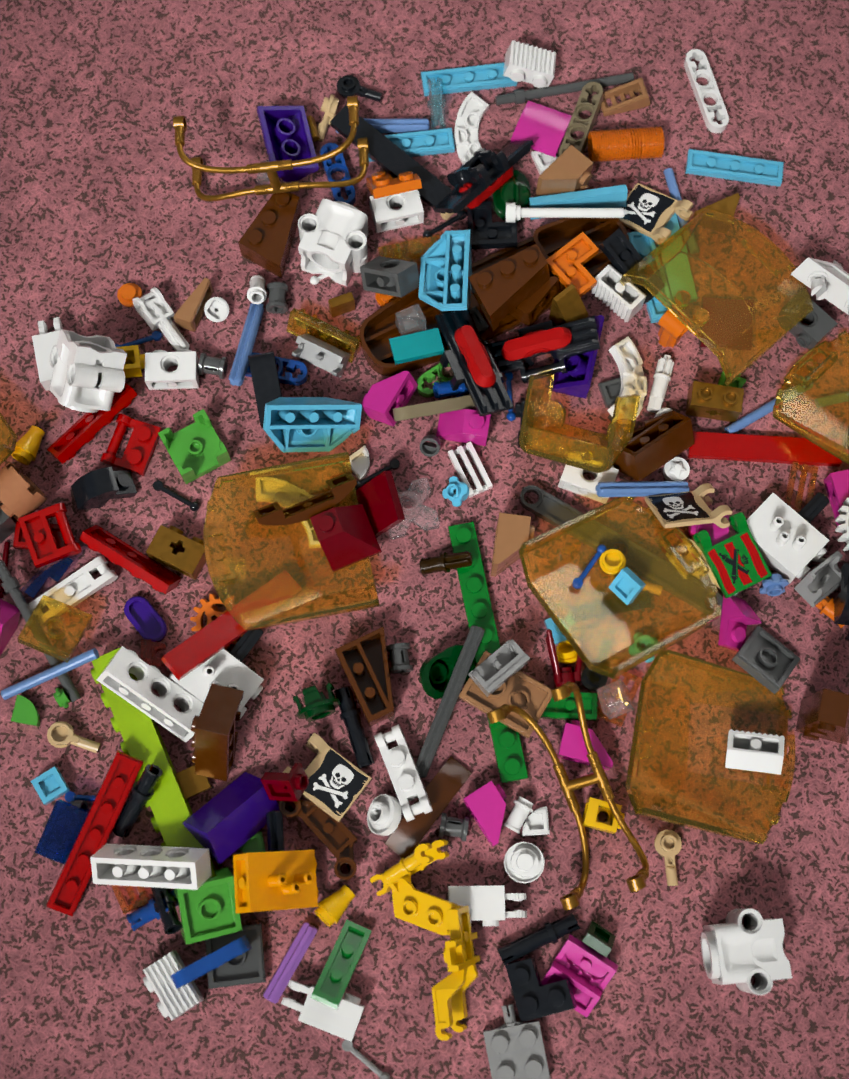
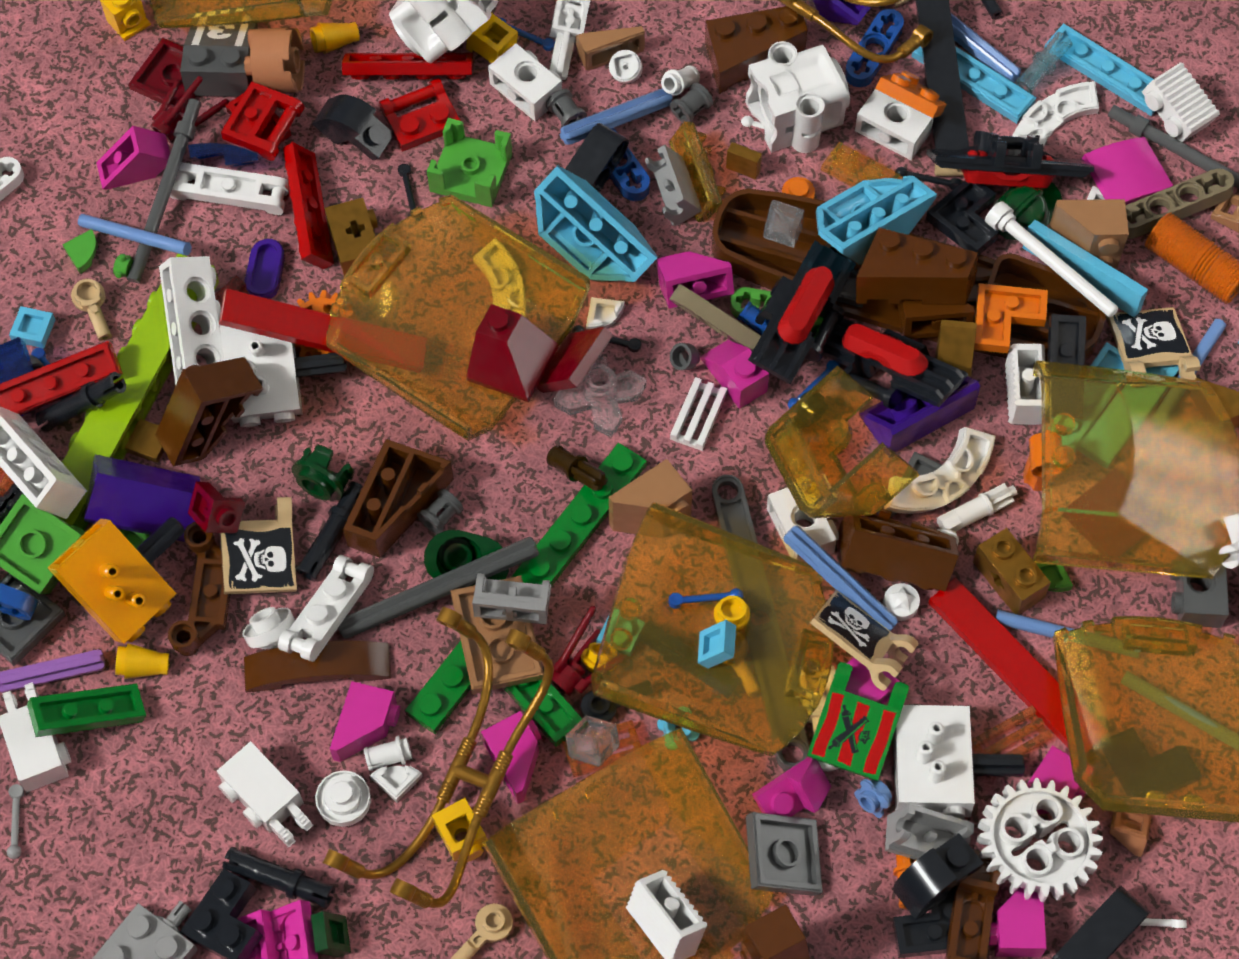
camera: 50 degrees right, 10 degrees down
(55, 628) = (178, 199): clear yellow plate -> none
(338, 489) = (467, 278): reddish brown slope -> none
(390, 276) = (813, 170): dark grey brick -> none
(416, 346) = (766, 251): teal tile -> none
(444, 919) = (198, 798): yellow piece -> none
(454, 827) = (317, 703): dark grey bush -> none
(462, 491) = (661, 419): medium azure plate -> none

